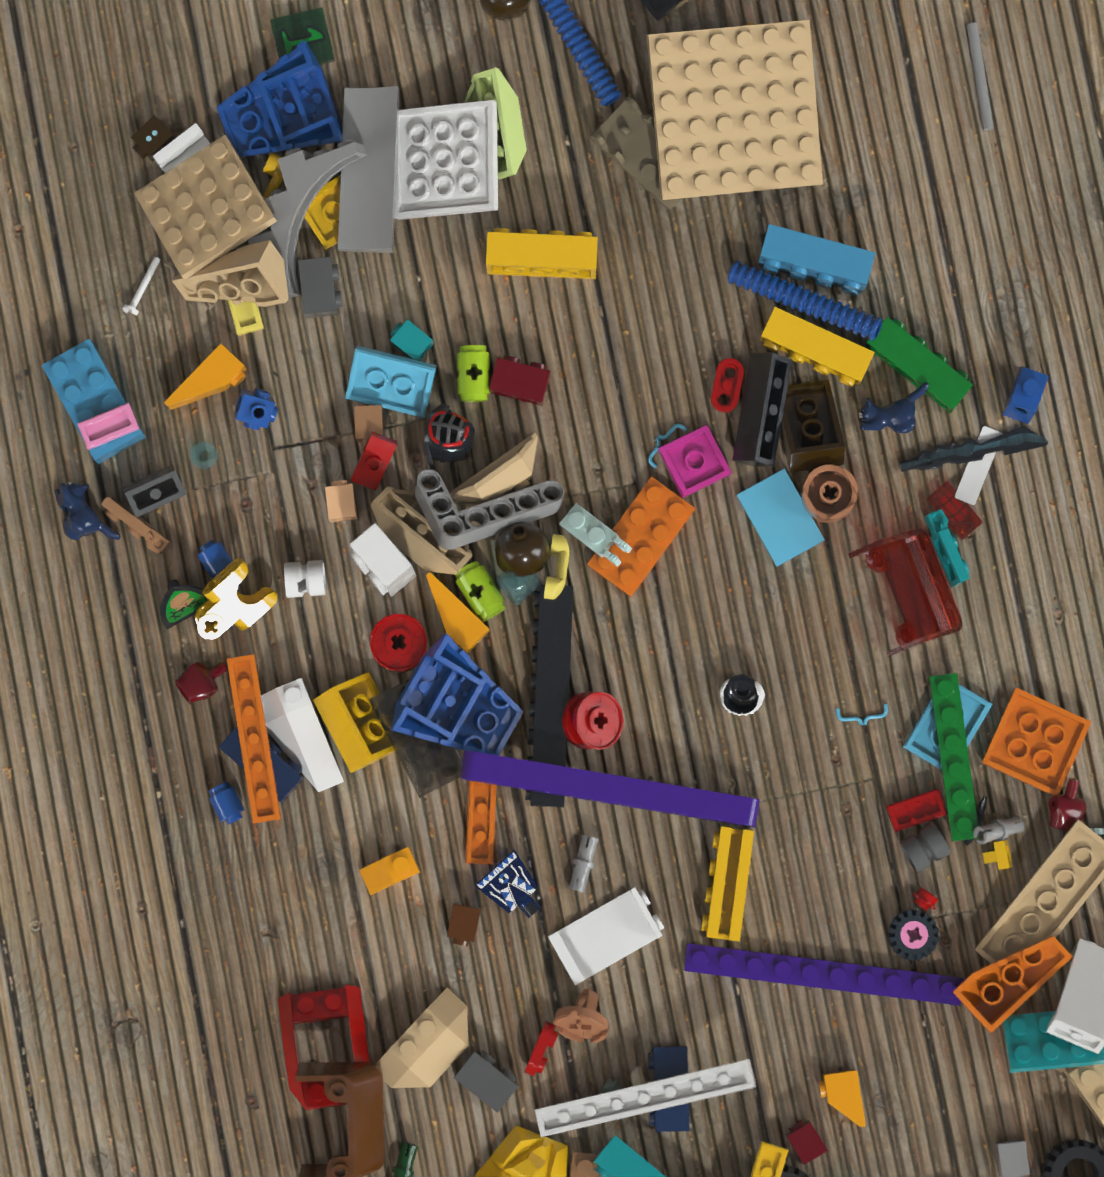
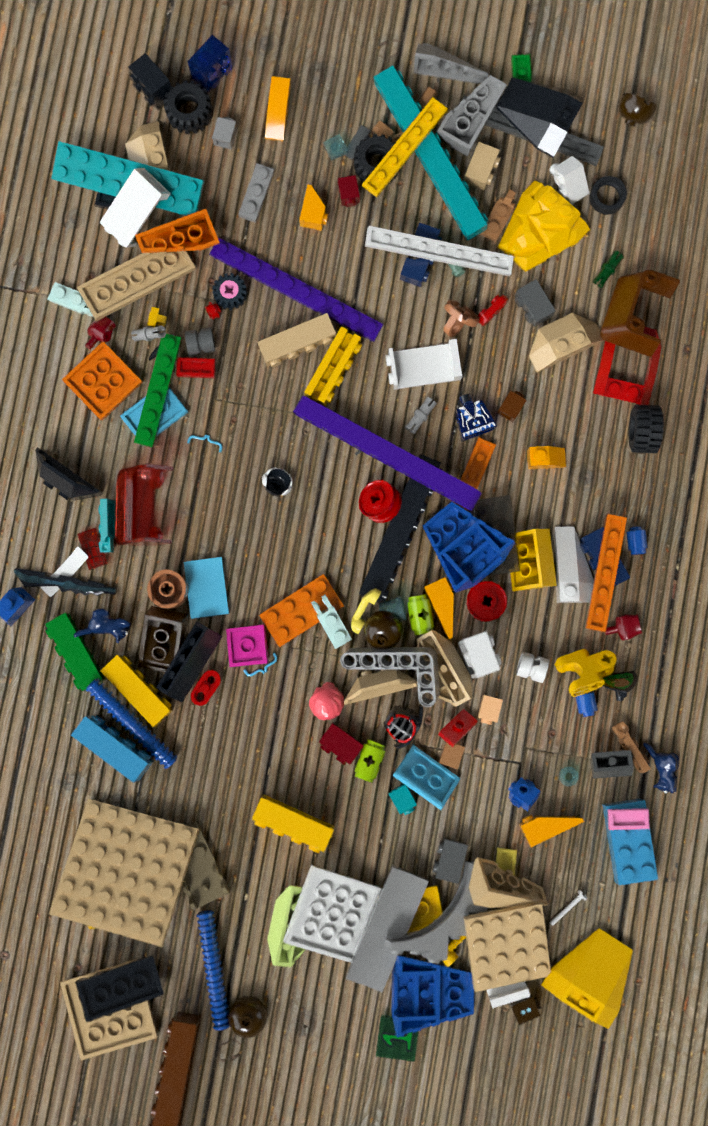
camera: 160 degrees left, 0 degrees up
(79, 210) = (592, 977): none -> yellow wedge
(270, 958) = (646, 428): none -> black tyre
(559, 428) = (326, 702): none -> coral hair
(793, 902) = (296, 340): none -> tan brick
(934, 1091) = (256, 193): none -> light grey plate
(1032, 588) = (63, 479): none -> black wedge

